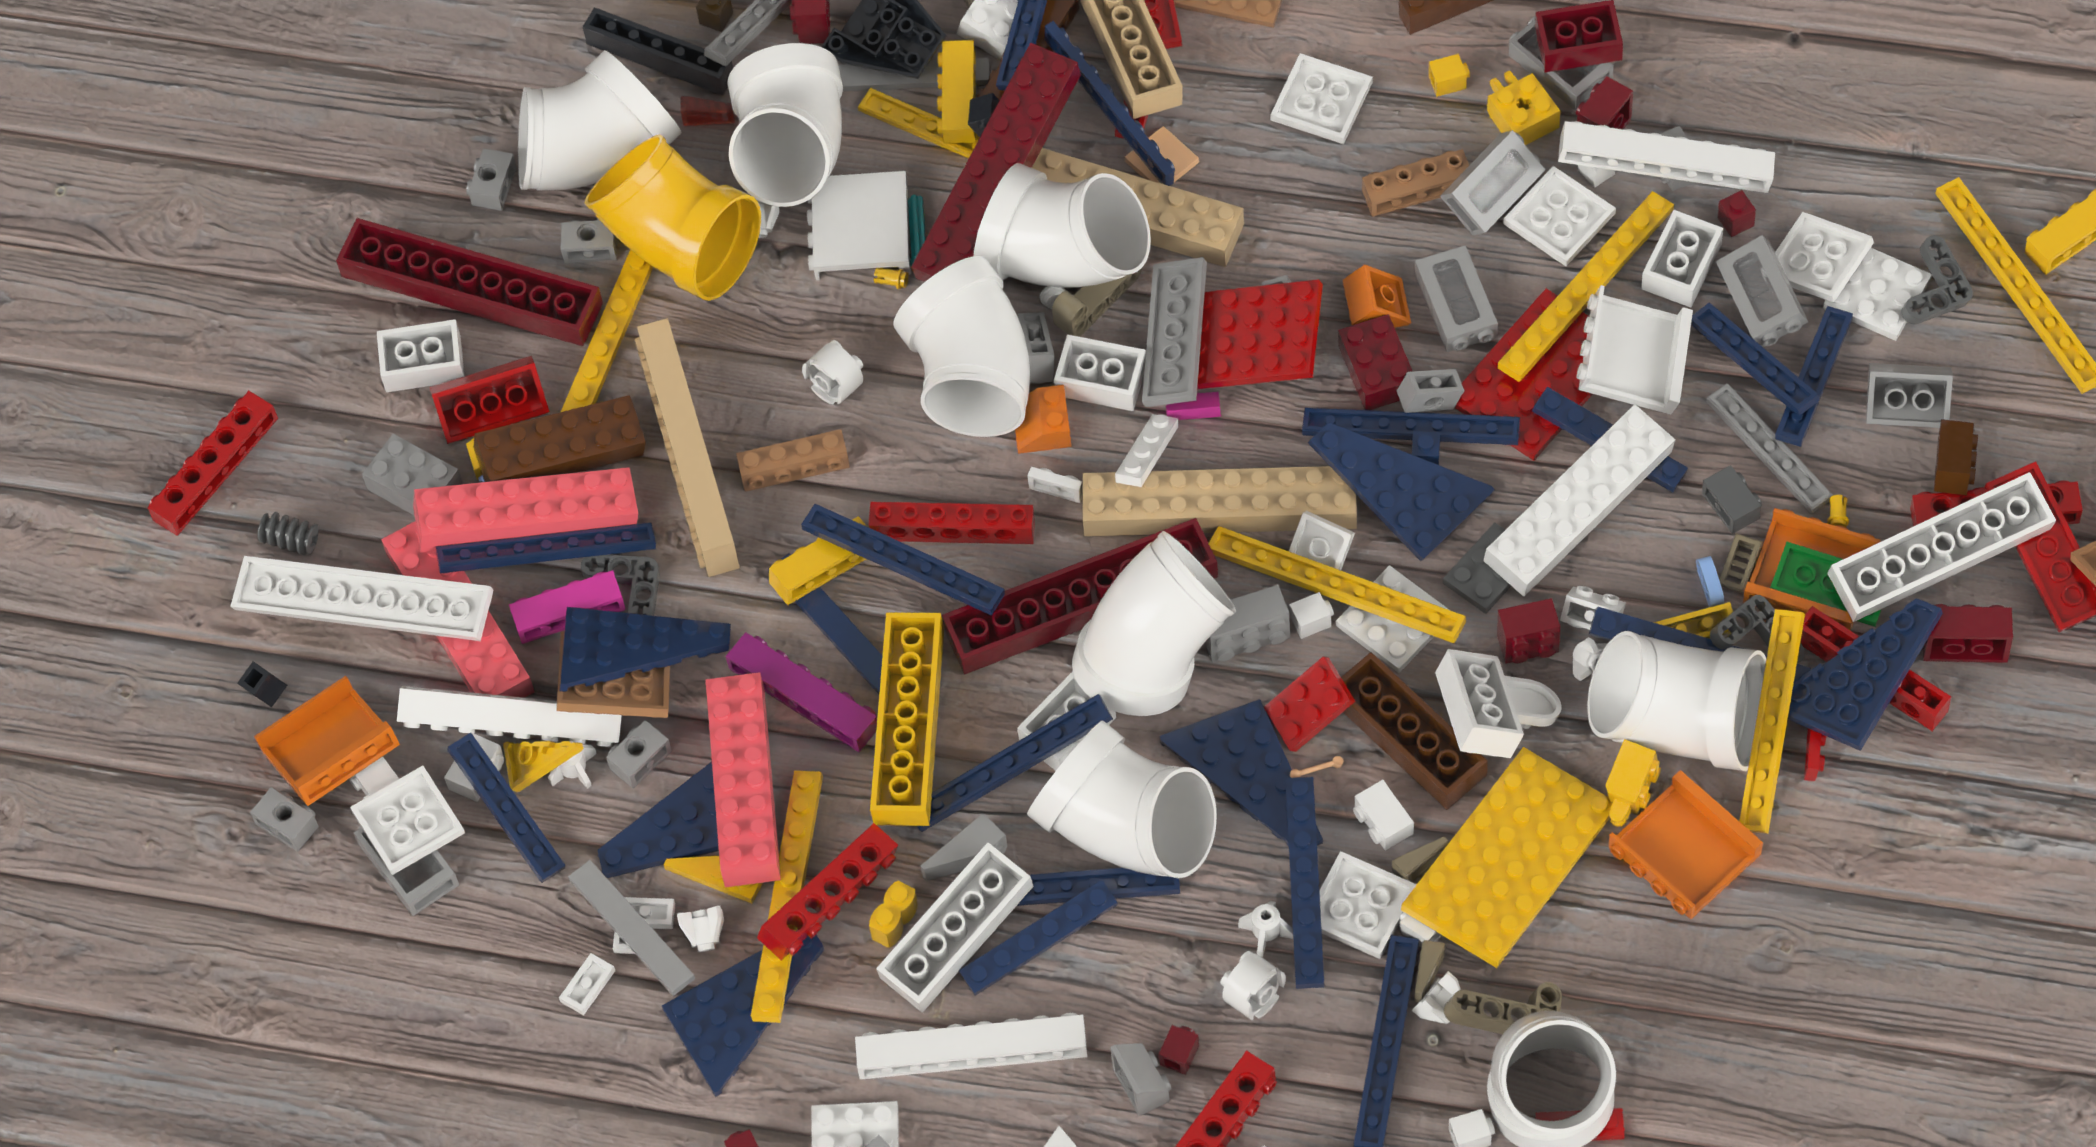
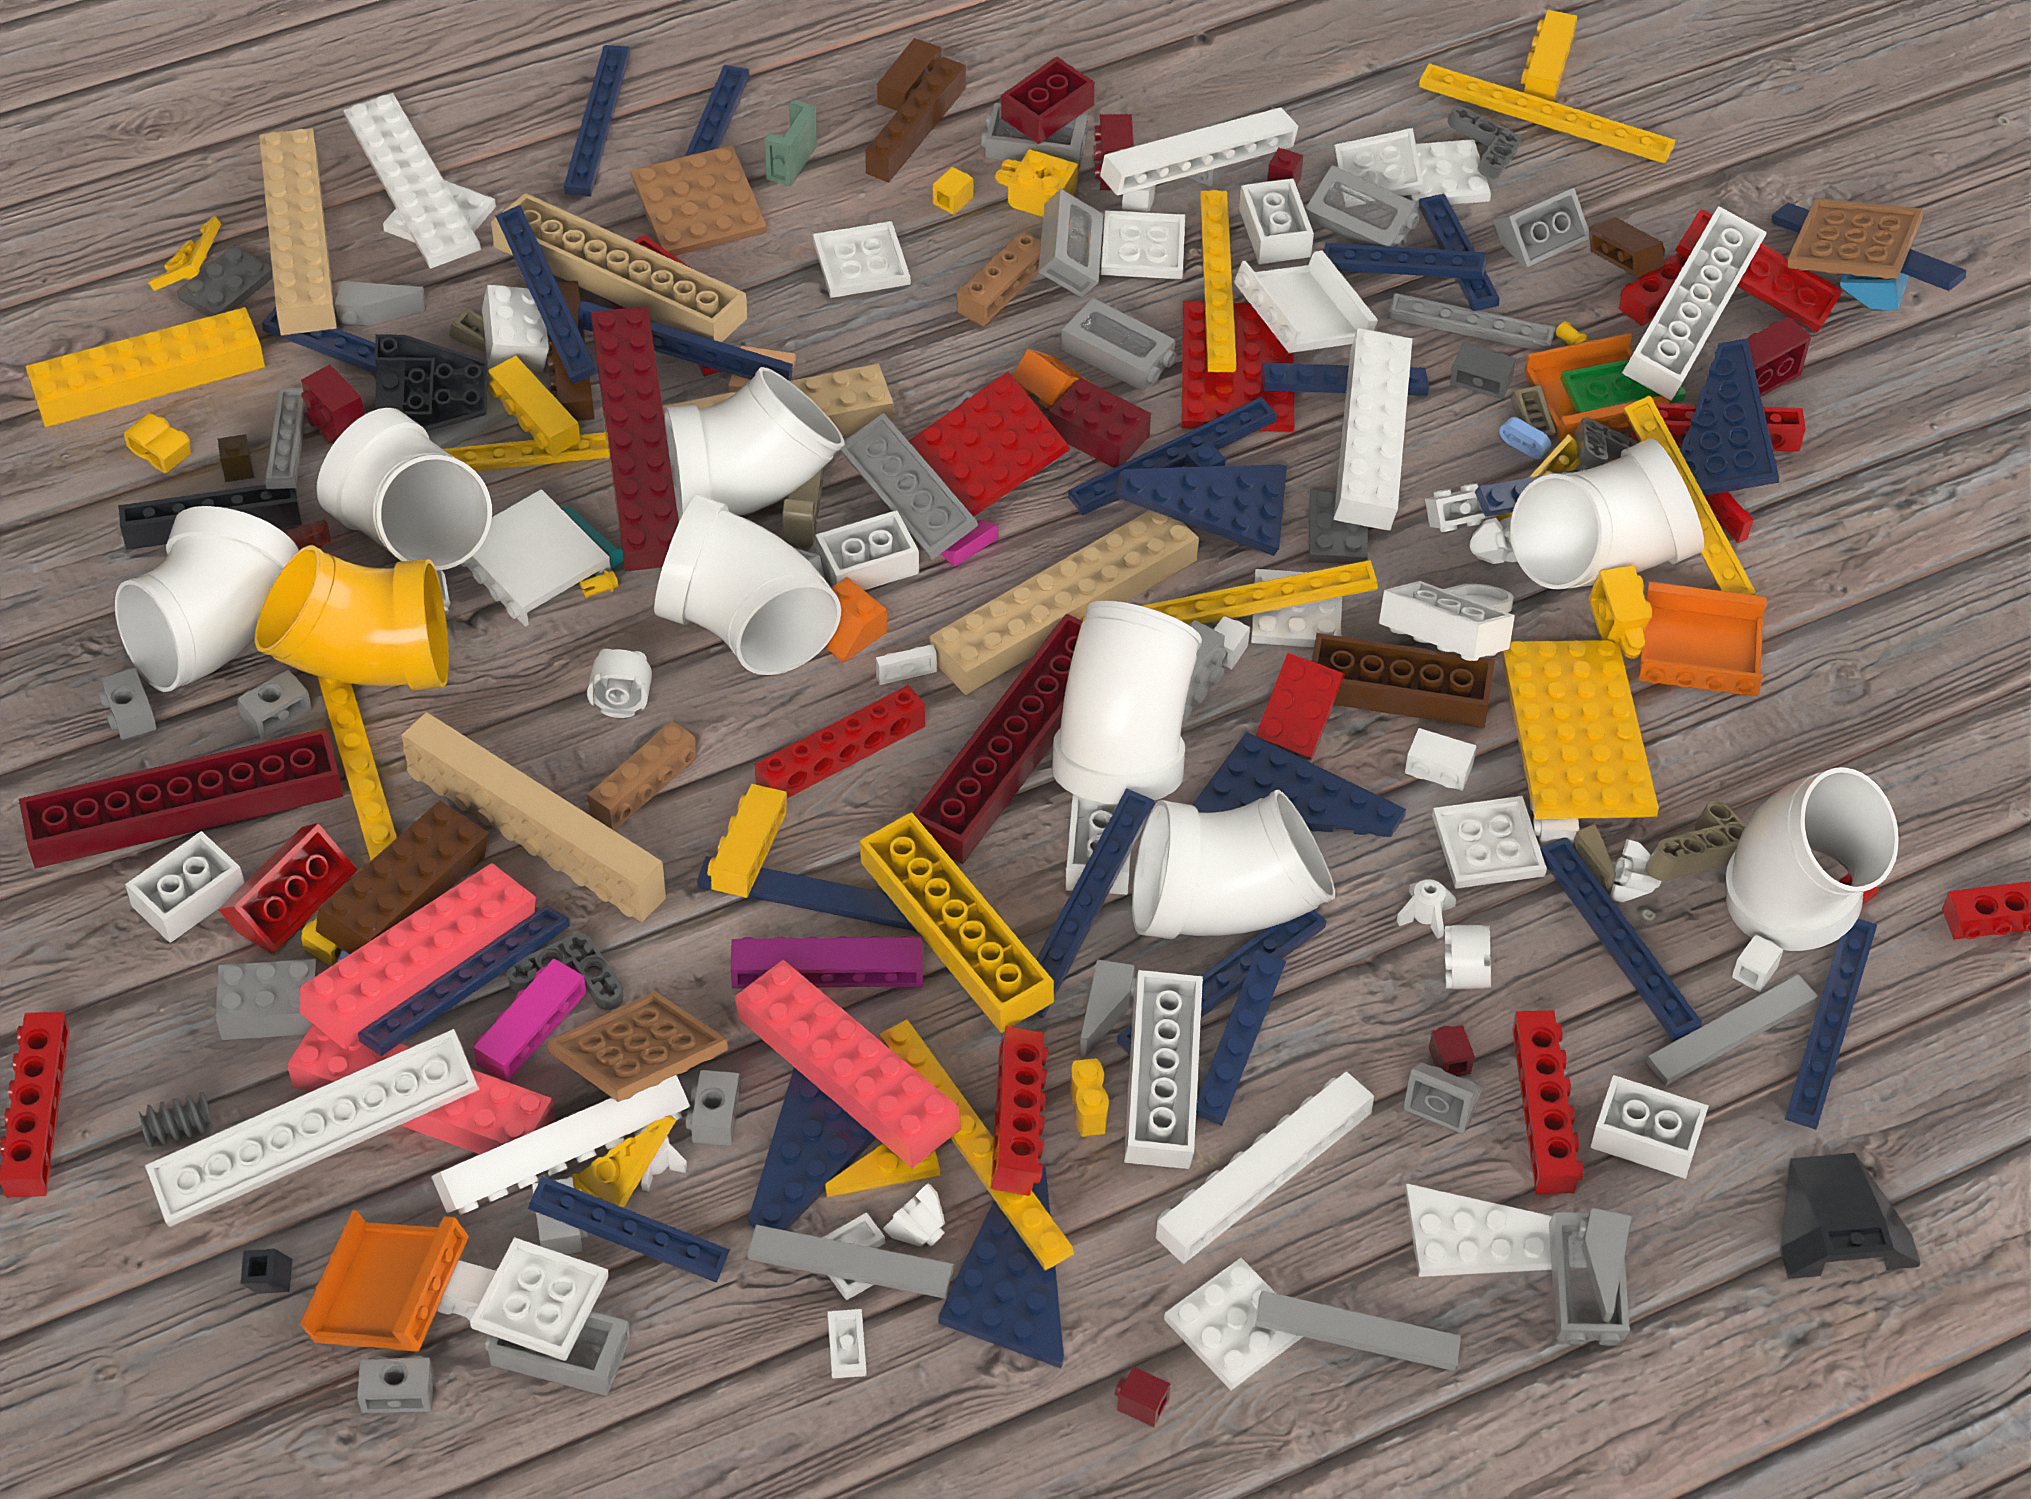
camera: 45 degrees left, 10 degrees down
(611, 643) = (620, 1018): dark blue wing -> none
(903, 559) = (834, 788): dark blue plate -> none
(981, 112) = (582, 405): black brick -> none
(1049, 295) = (766, 518): white plate -> none
(1146, 450) = (969, 588): white plate -> none
(1304, 883) = (1431, 849): dark blue plate -> none
(1321, 540) = (1187, 575): white plate -> none
(1337, 762) = (1356, 745): light nougat hinge -> none
(1417, 862) = (1503, 778): dark tan slope -> none
(1430, 390) = (1168, 416): light grey brick -> none
(1528, 631) = (1426, 547): dark red brick -> none

